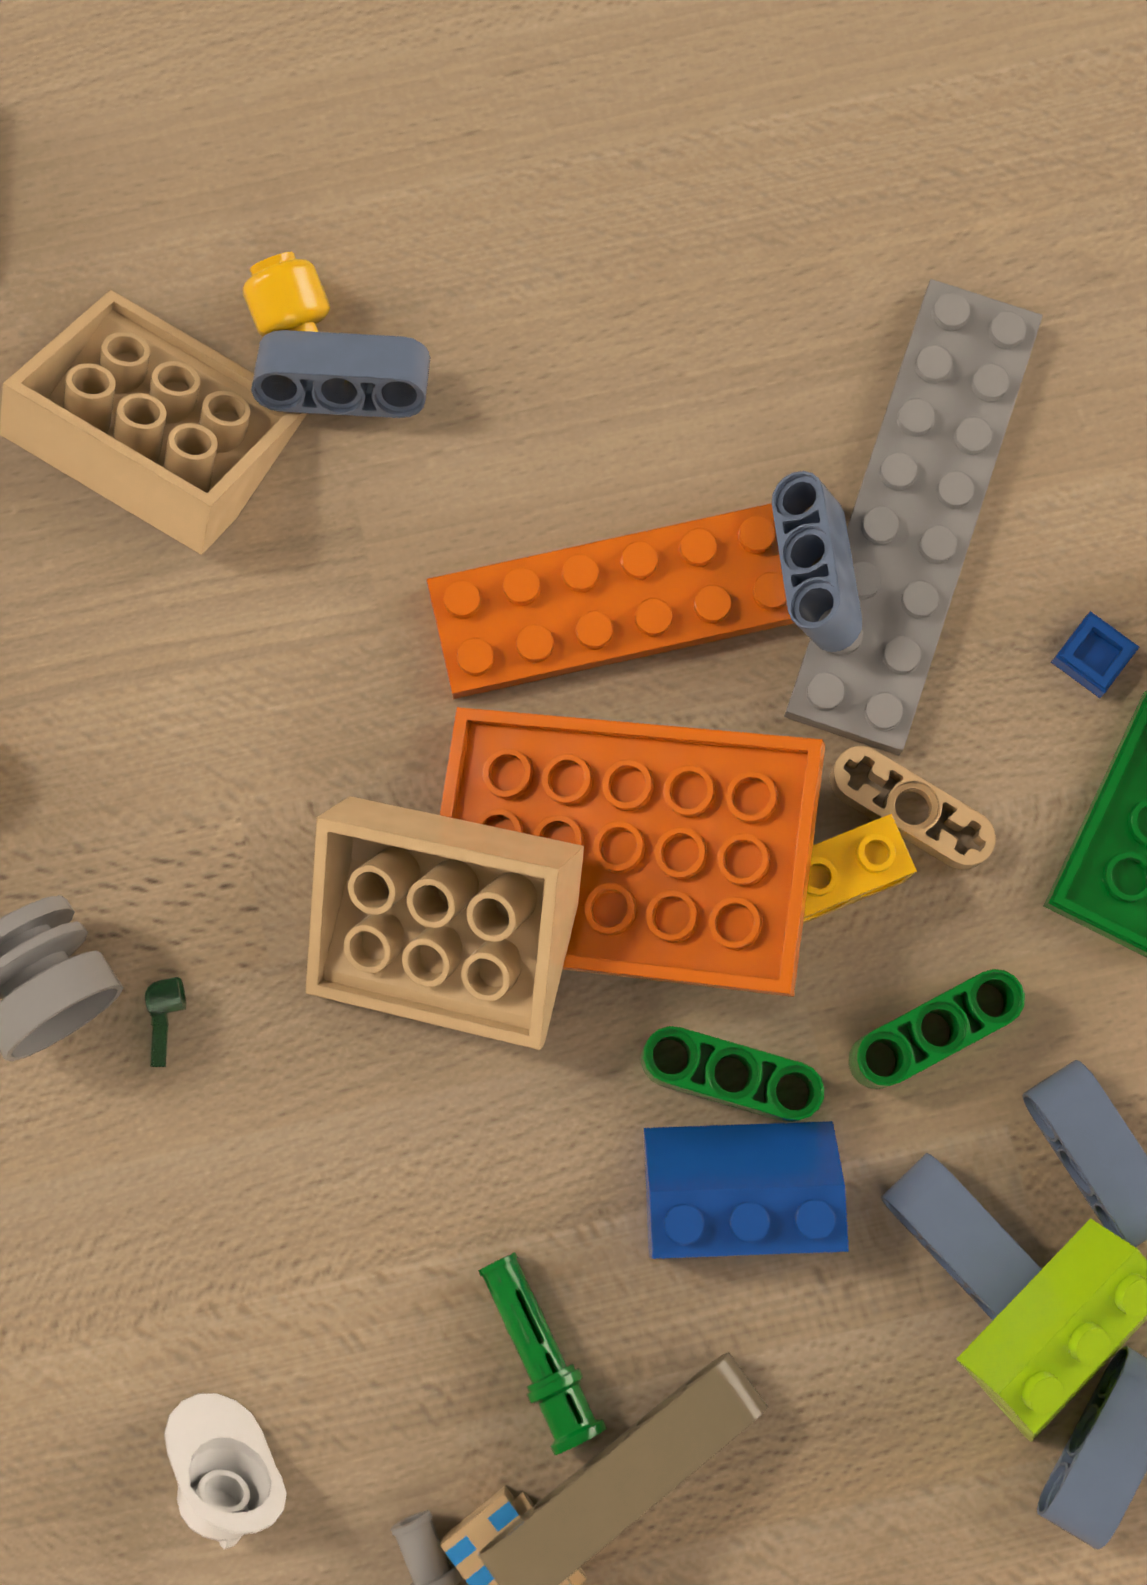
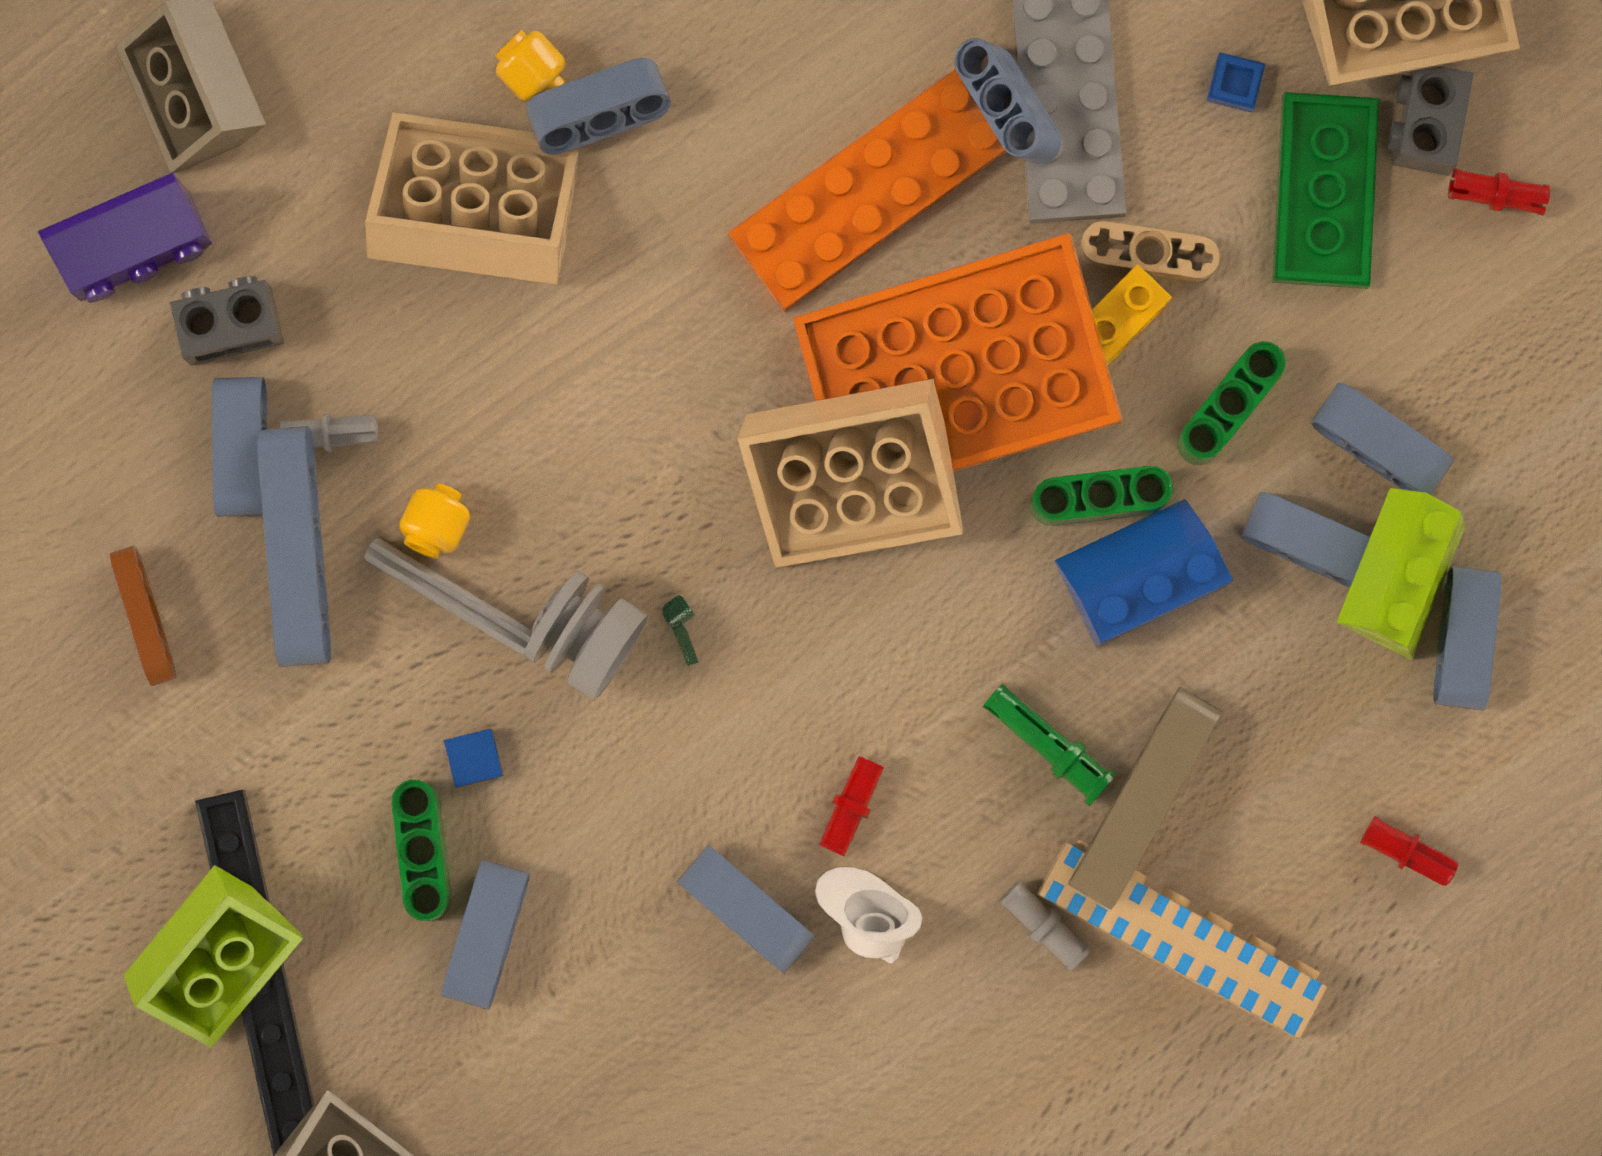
camera: 20 degrees left, 5 degrees up
(78, 1399) = (746, 909): none -> sand blue beam
(264, 1326) = (851, 806): none -> red pin

